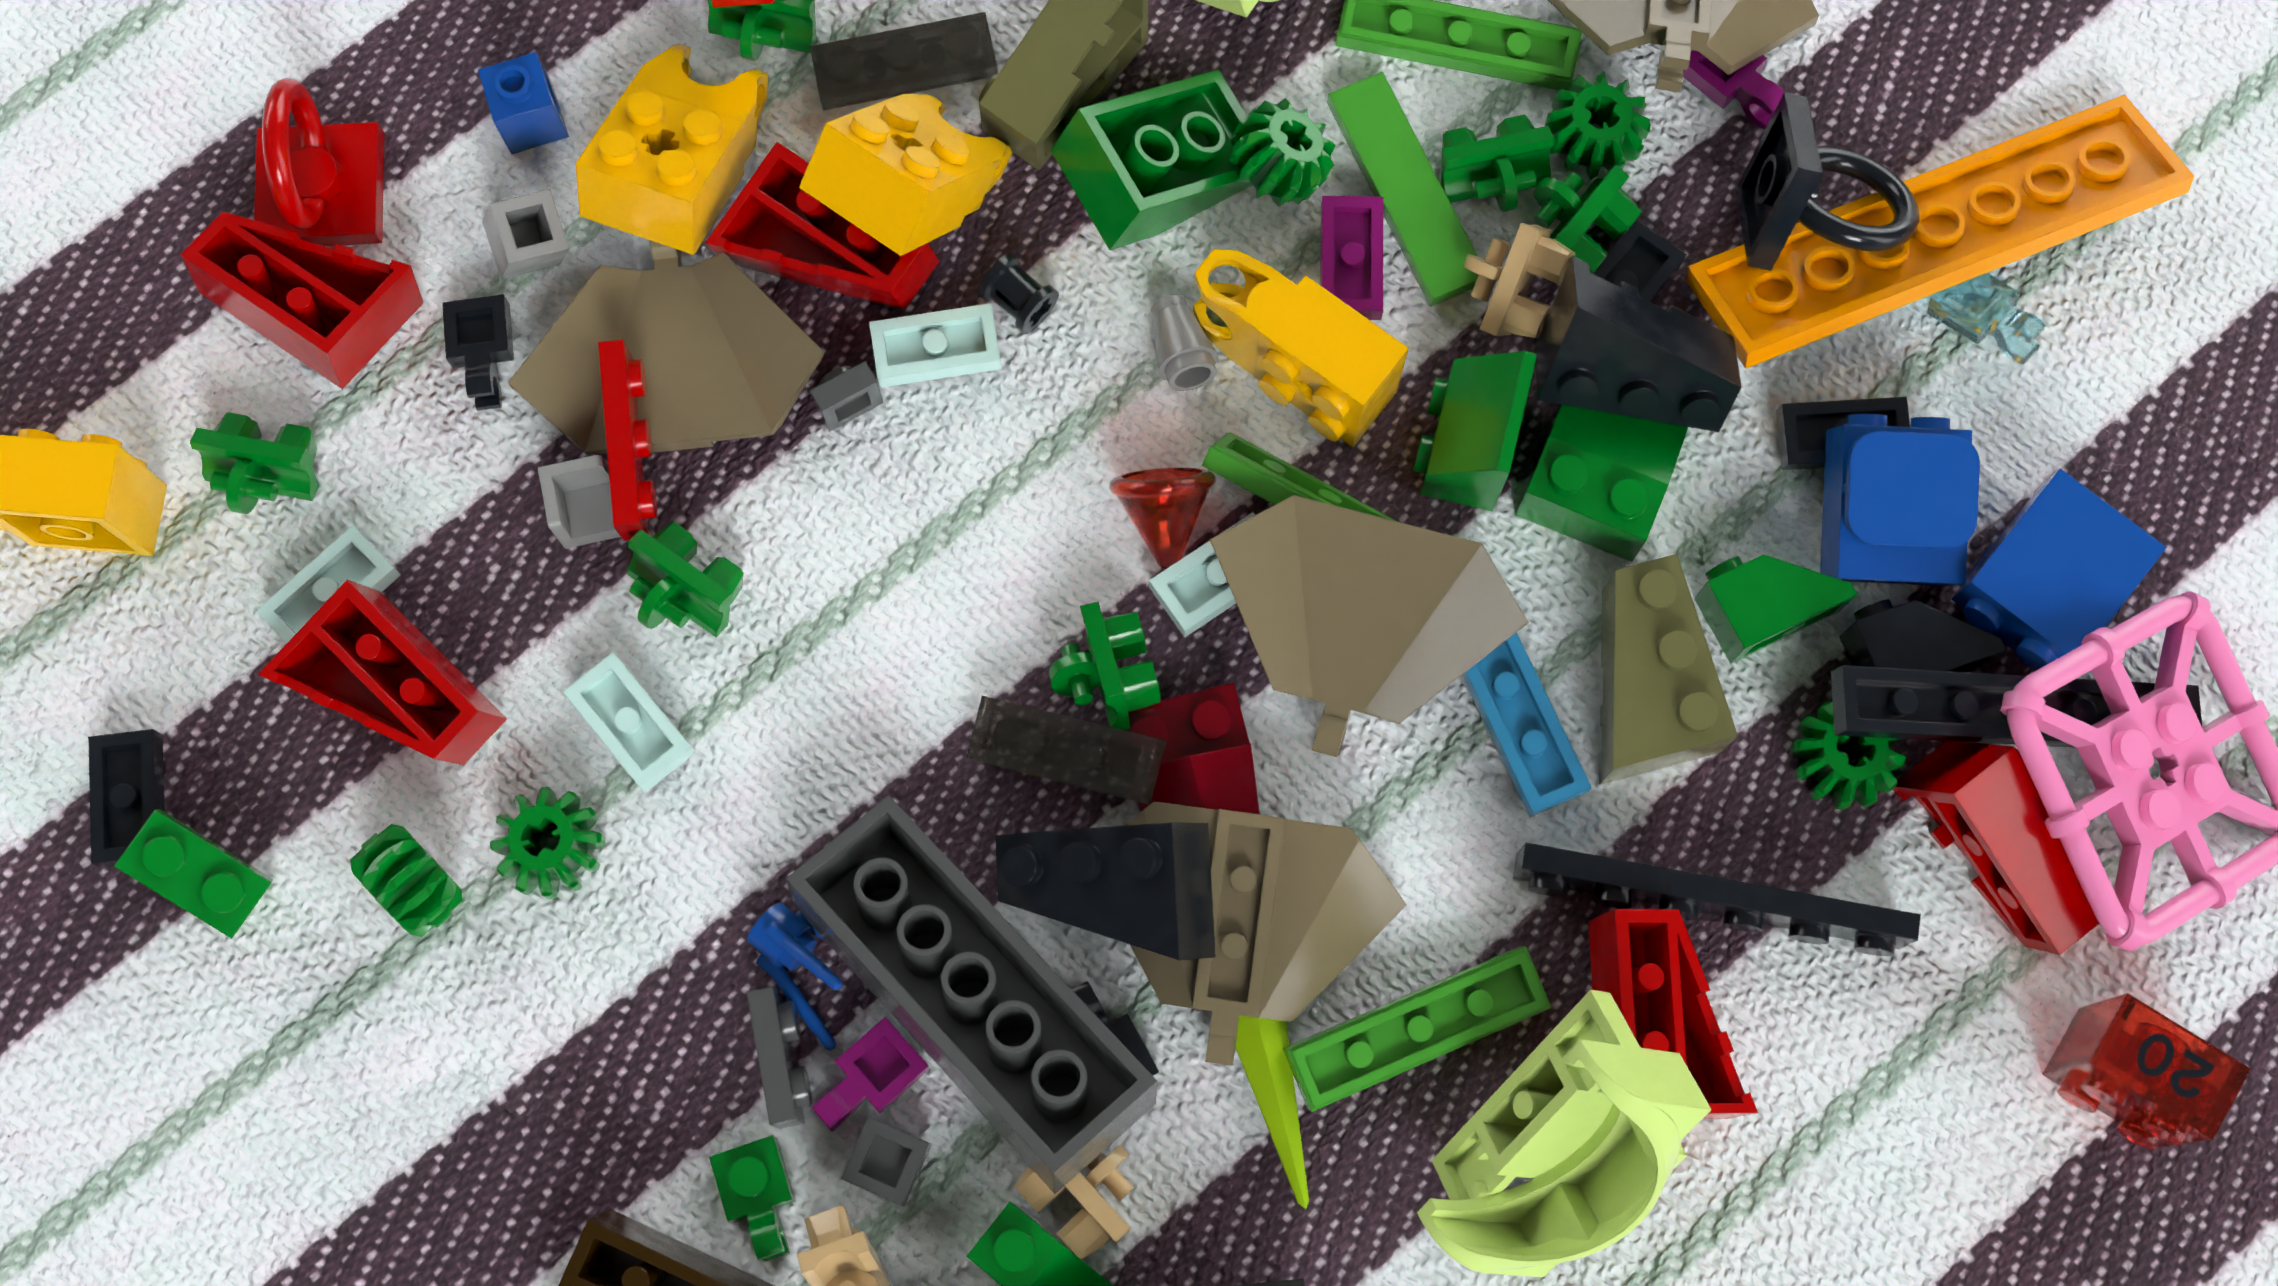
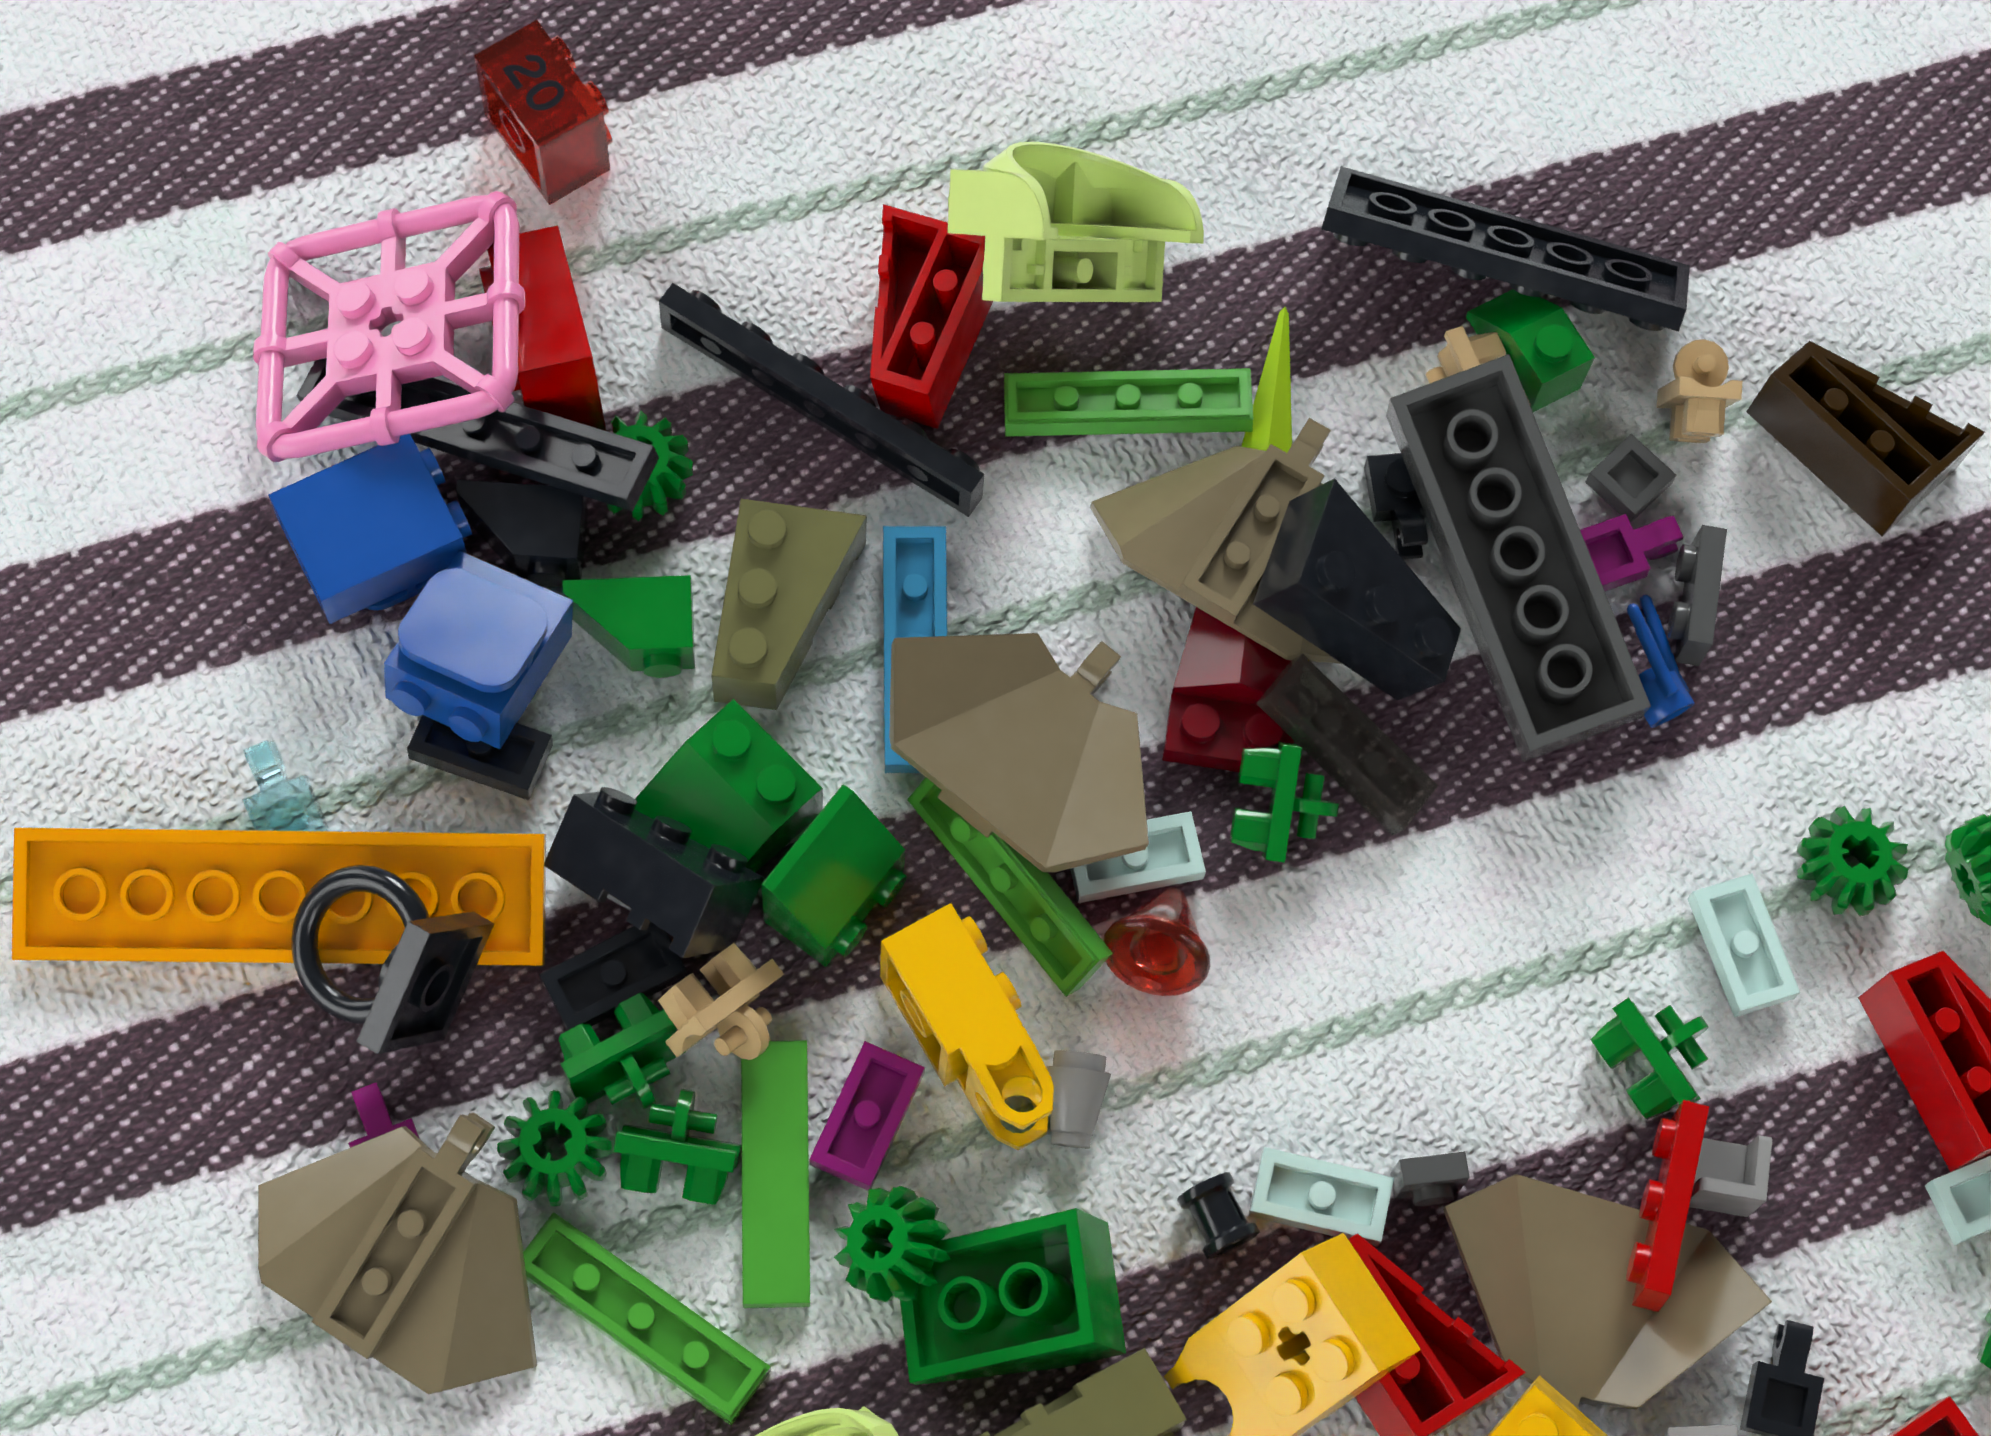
camera: 165 degrees left, 5 degrees down
(753, 1186) = (1750, 506): green plate -> none

